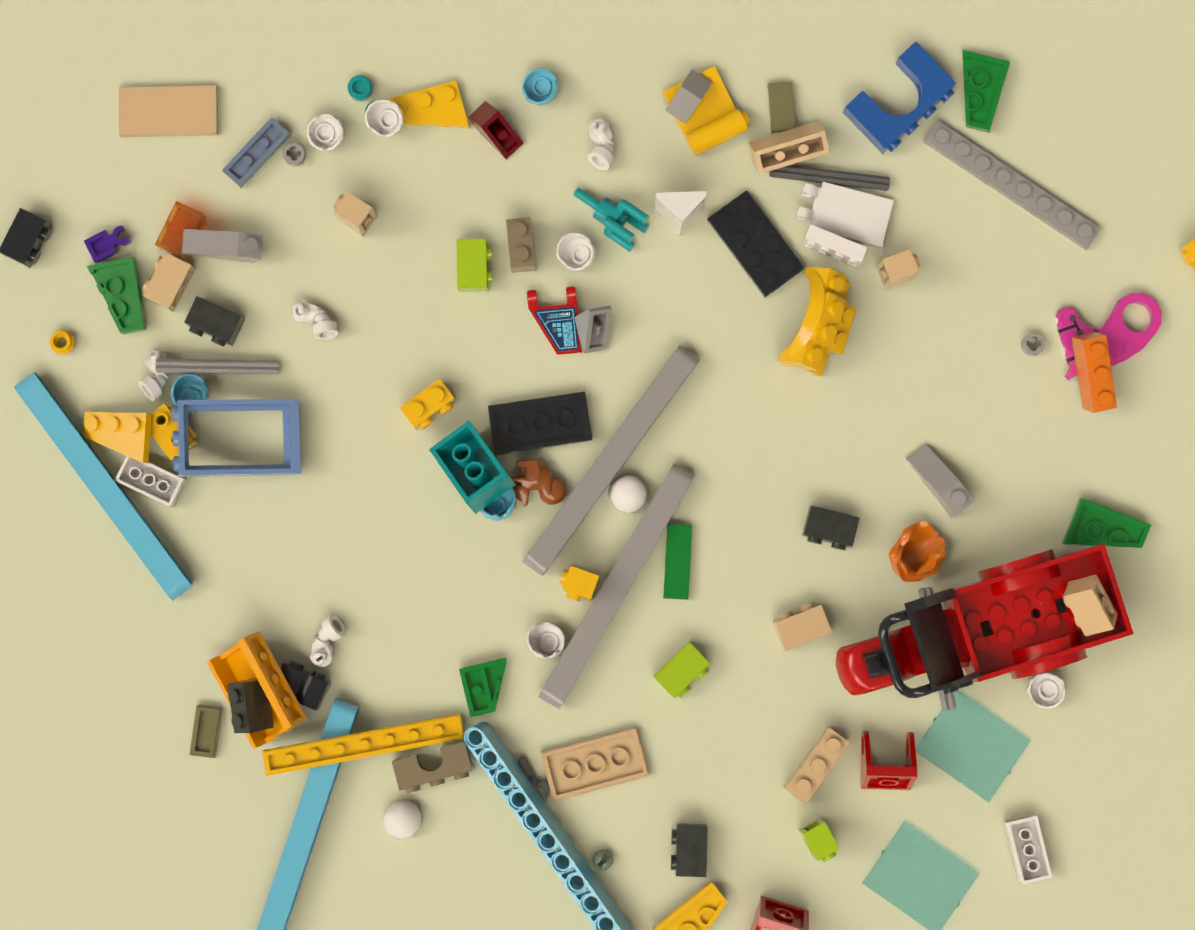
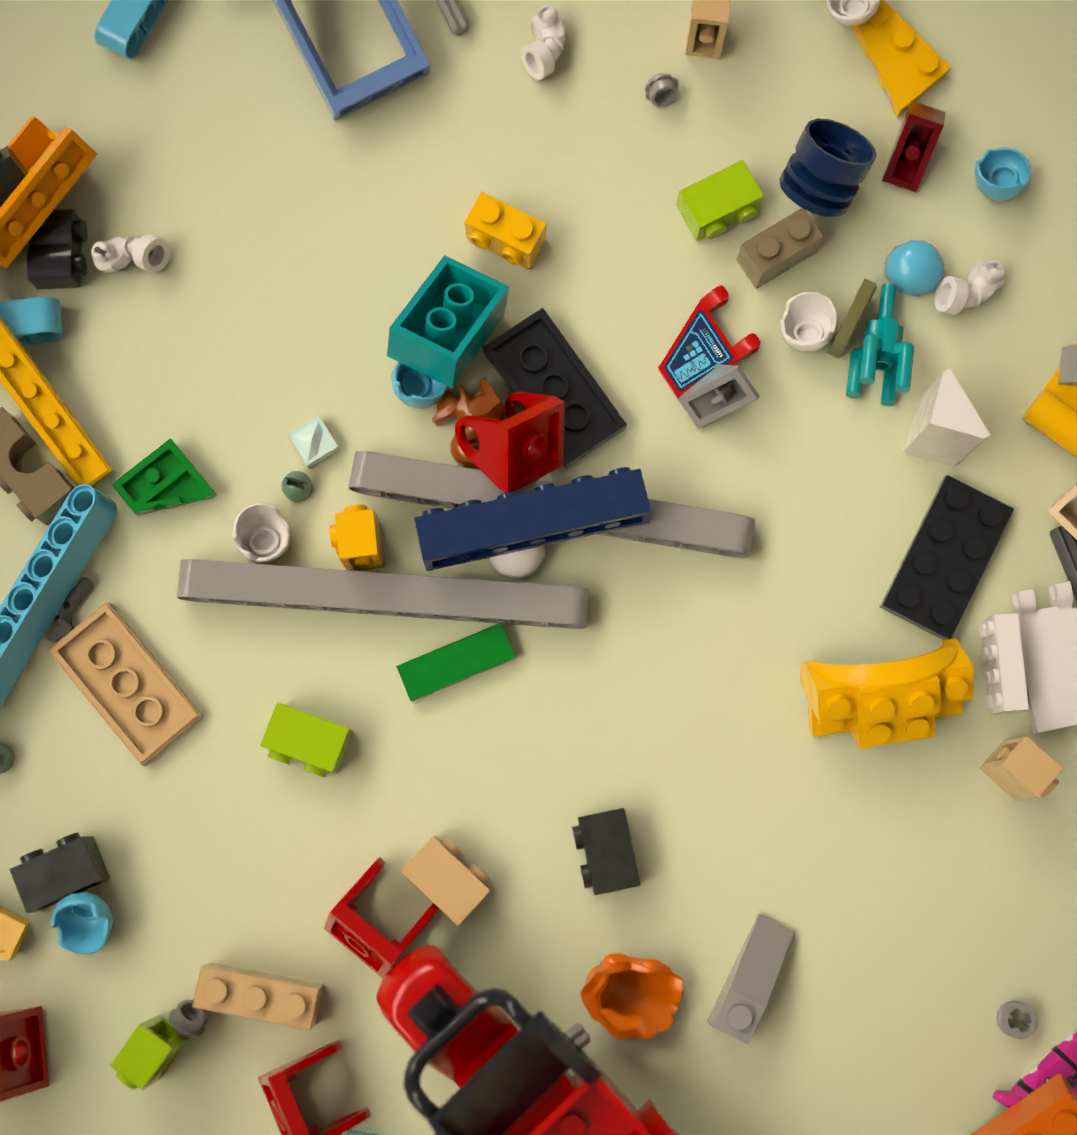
camera: 65 degrees right, 5 degrees down
(382, 263) = (662, 89): none -> light grey plate
(489, 192) = (827, 167): none -> dark blue wheel
(501, 584) = (313, 442): none -> light aqua tile
(528, 610) = (295, 493): none -> sand green hinge
(571, 169) = (914, 267): none -> medium azure hair
(575, 460) = (506, 442): none -> red hose
(585, 224) = (852, 318): none -> olive tile
(619, 476) = (532, 518): none -> dark blue brick
(726, 848) = (82, 922): none -> medium azure hair
(809, 812) = (188, 1020): none -> light grey plate
(814, 689) = (361, 937): none -> red hose

